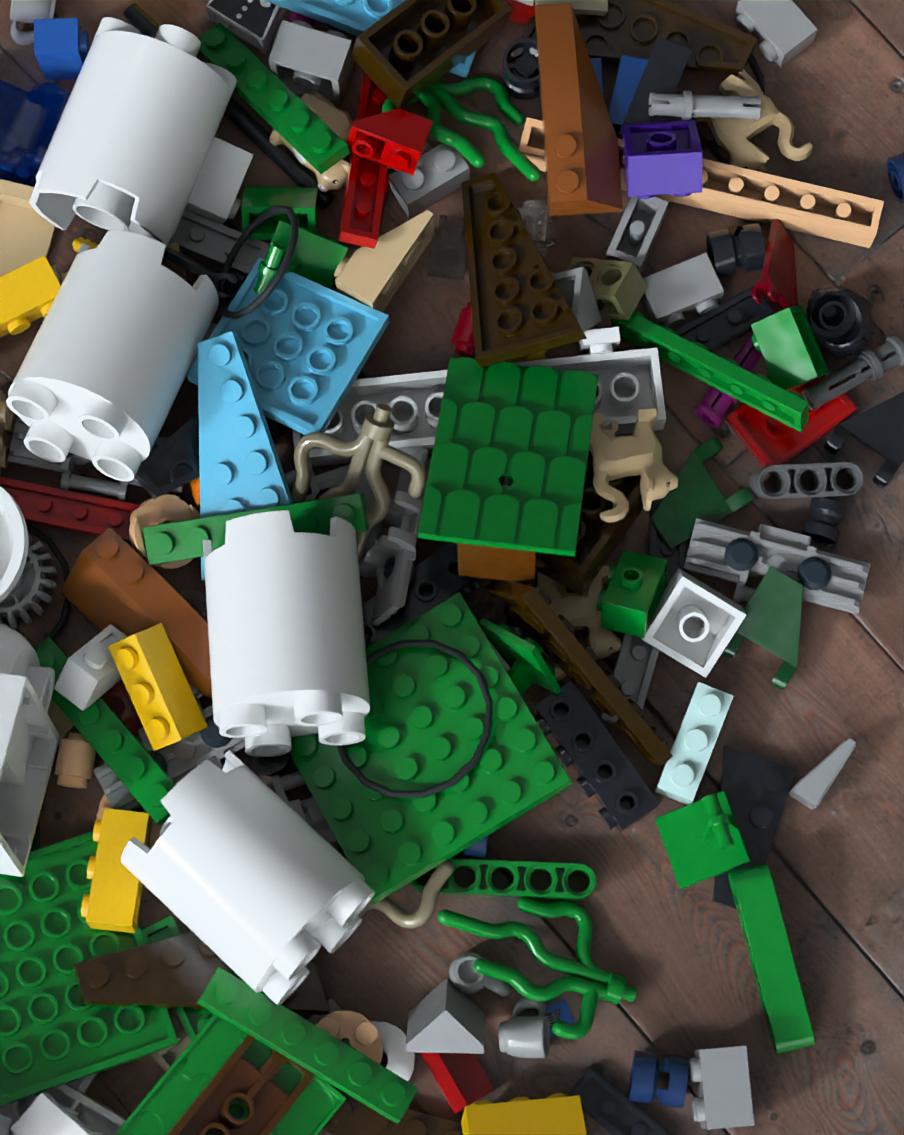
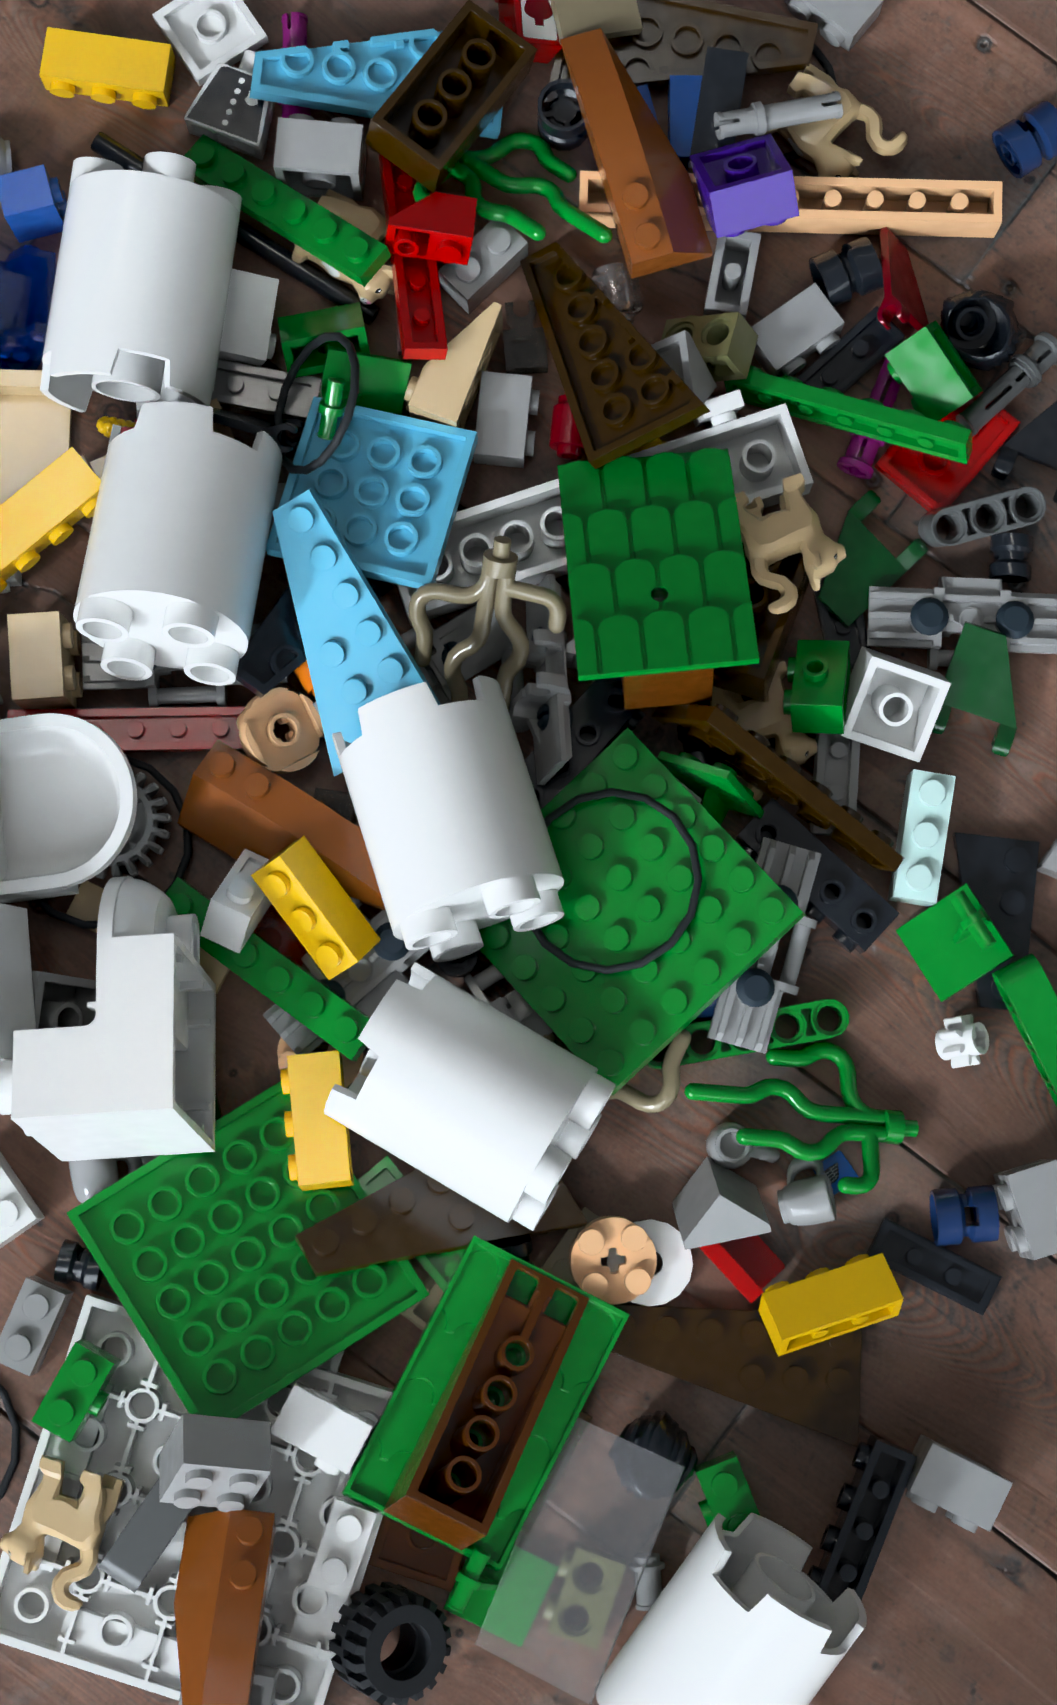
camera: 15 degrees left, 5 degrees up
(75, 762) = (239, 1009): light nougat brick -> none
(185, 538) = (312, 731): green plate -> none
(308, 1045) = (574, 1266): green plate -> none
(417, 312) = (504, 419): none -> light grey brick
(514, 848) = (750, 1005): none -> light grey piece
(690, 927) = (962, 1041): none -> white gear

